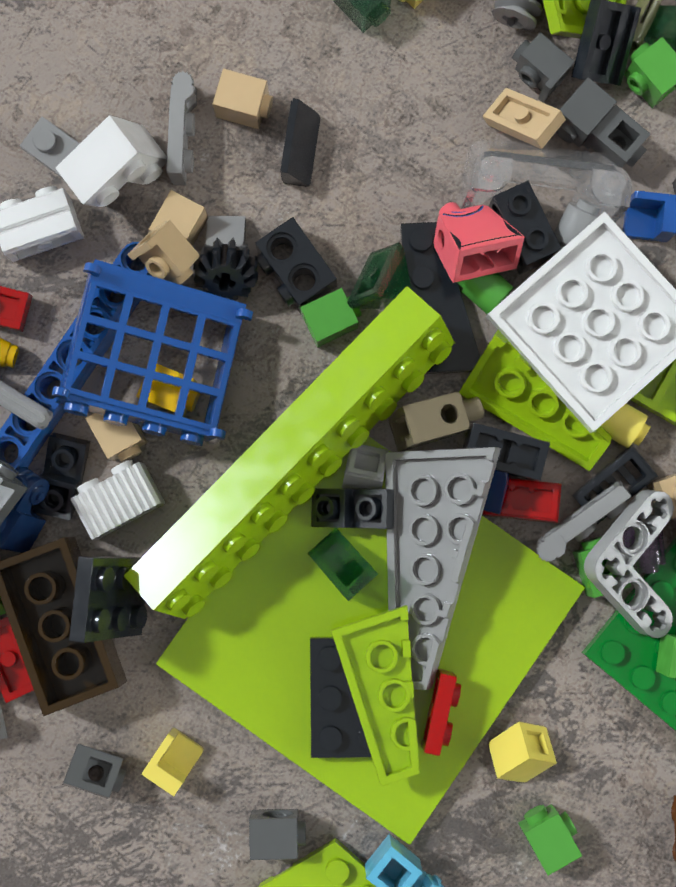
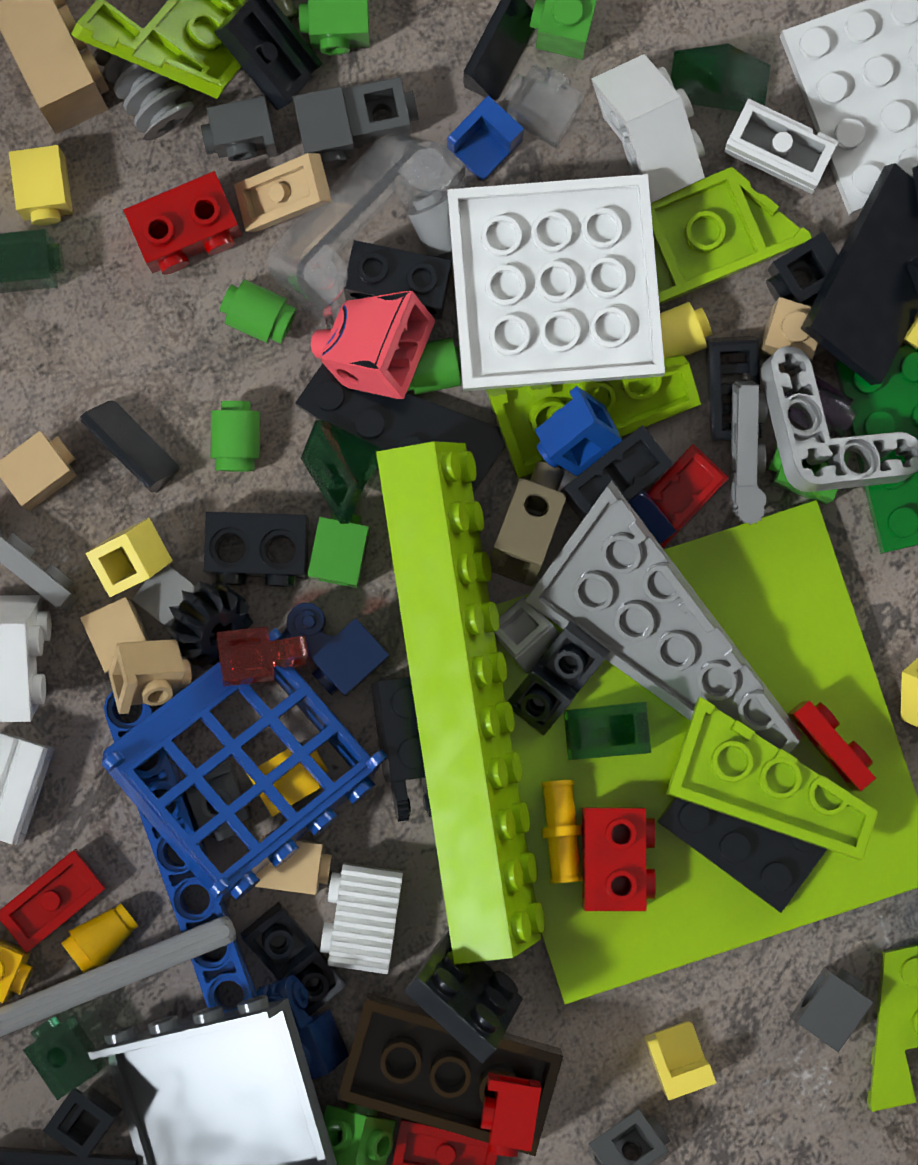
camera: 55 degrees left, 0 degrees up
(56, 681) = (511, 1114): none -> red brick
(136, 353) = (225, 783): none -> dark grey brick
(223, 307) = (249, 655): none -> clear red plate
(230, 192) = (129, 557): none -> light yellow brick
(240, 438) = (399, 740): none -> black hinge
(259, 582) = (562, 831): none -> yellow pin
(265, 368) = (342, 658): none -> dark blue brick
(267, 628) = (616, 859): none -> red brick
(352, 202) = (235, 437): none -> bright green brick
(439, 159) = (258, 312): none -> bright green brick
(458, 74) = (183, 224): none -> red brick
(513, 406) = (577, 433): none -> blue brick

